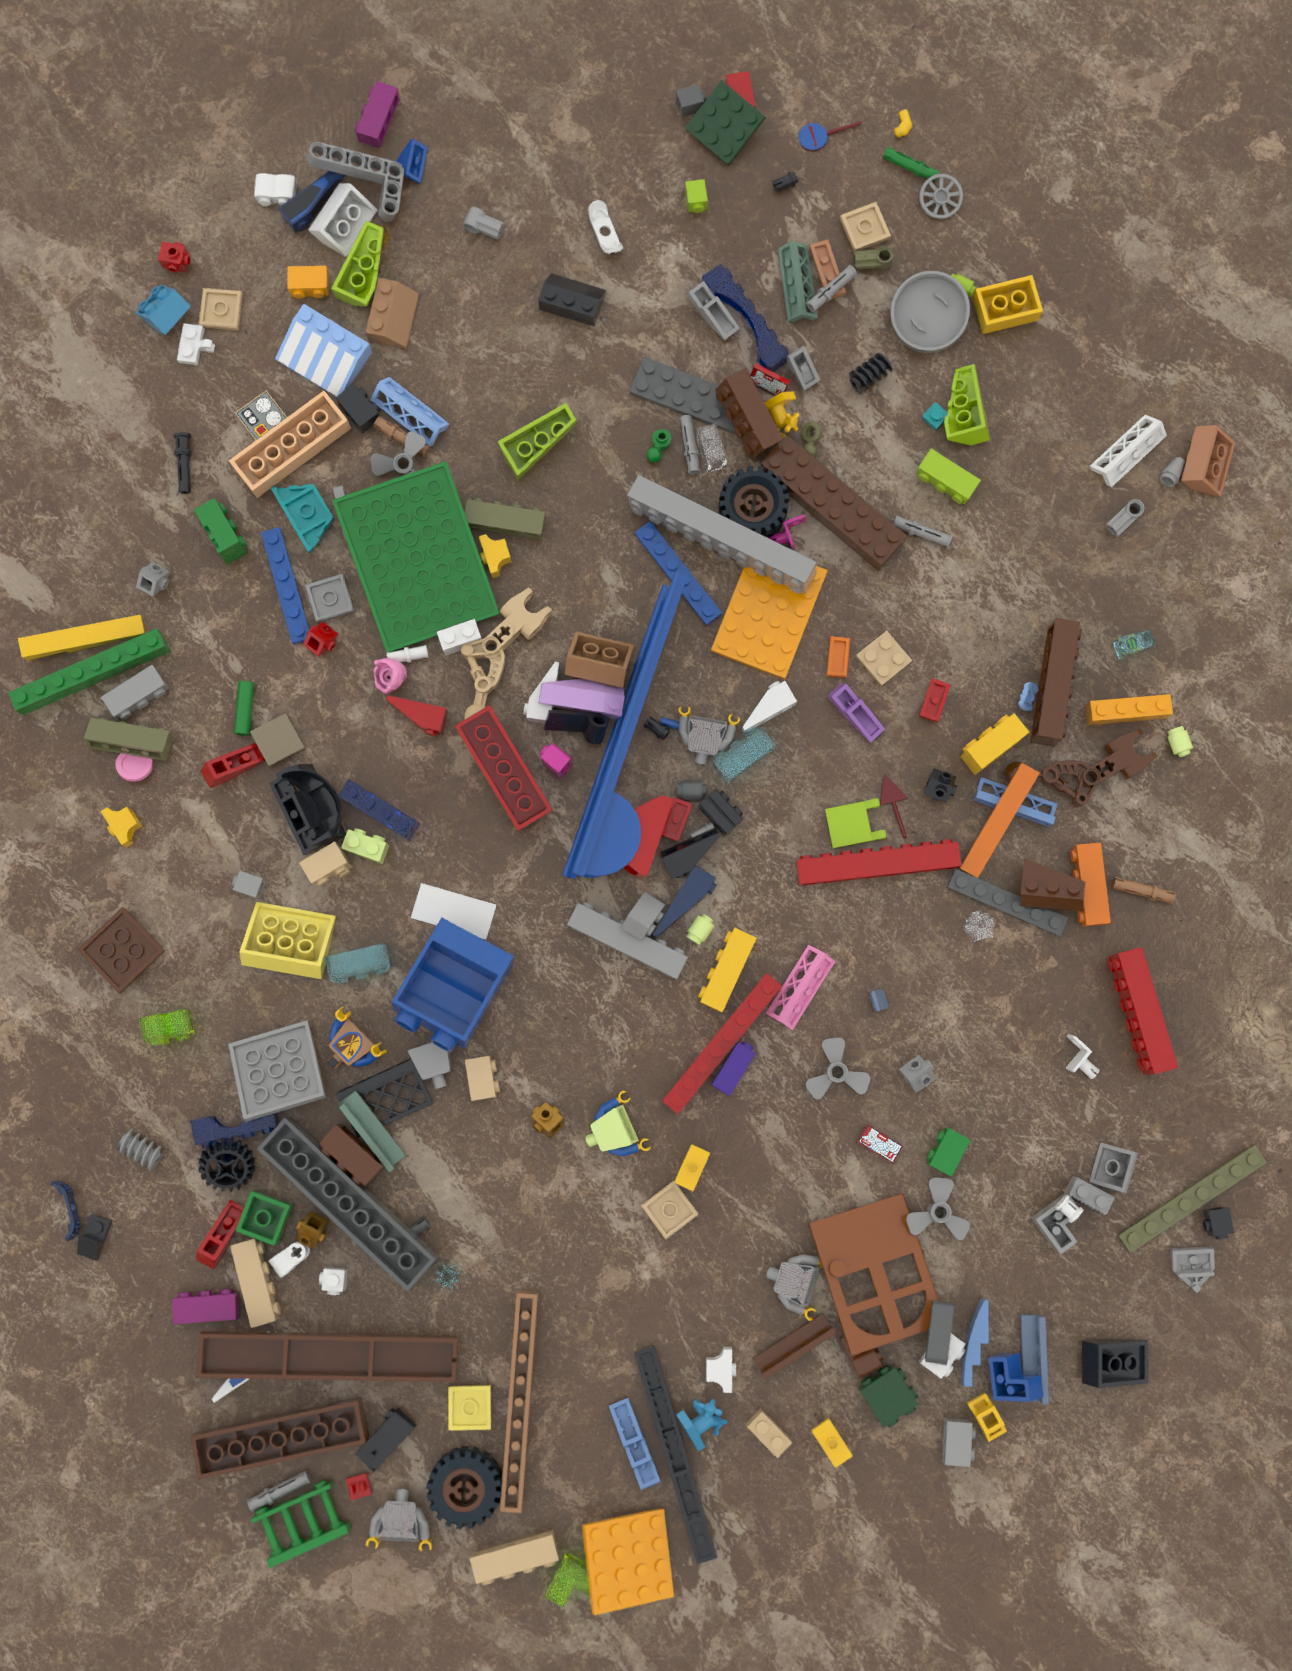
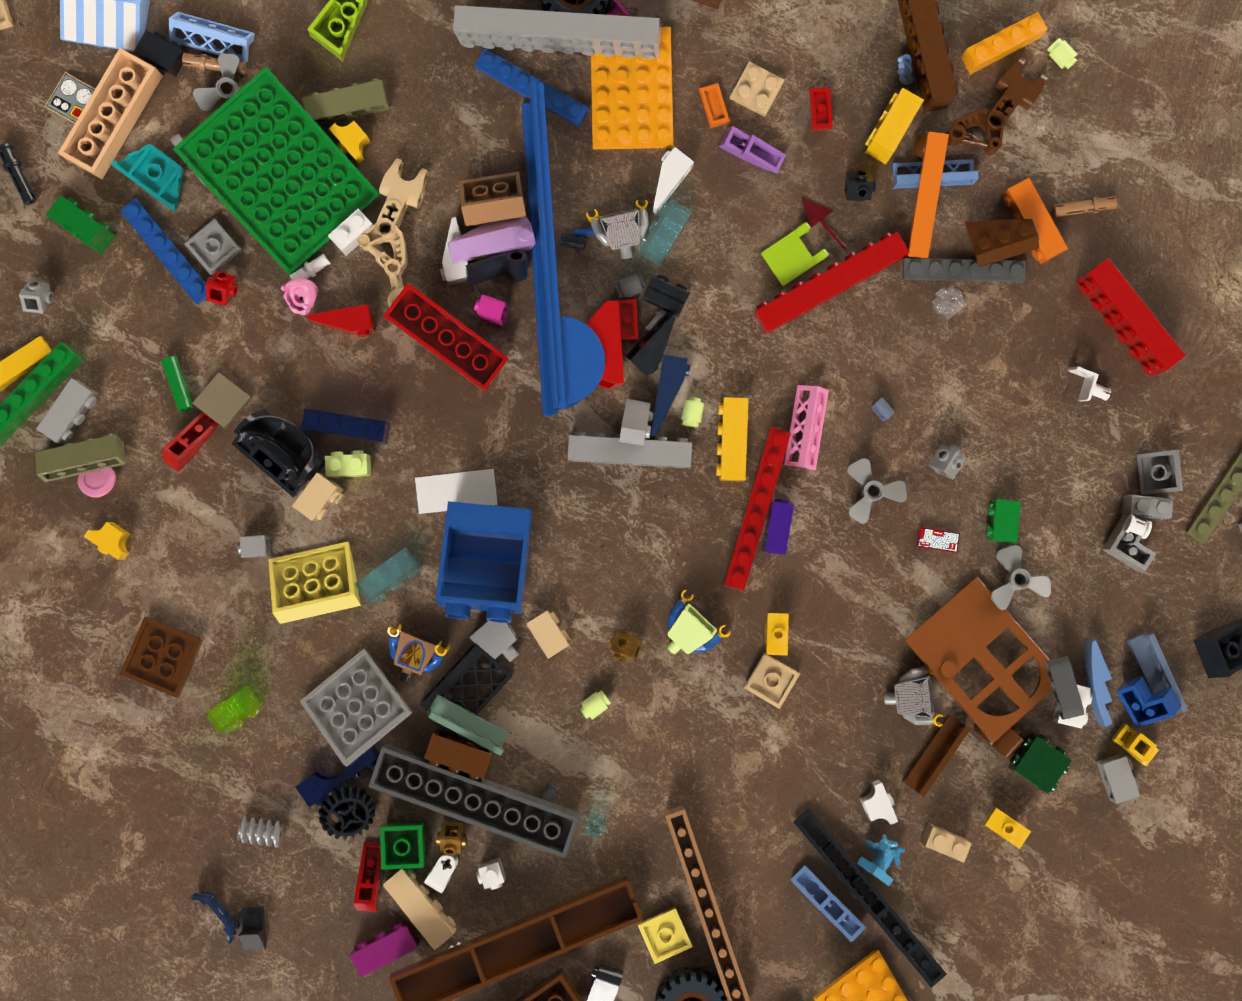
camera: 25 degrees left, 5 degrees up
(496, 1162) = (594, 705): none -> yellowish green brick

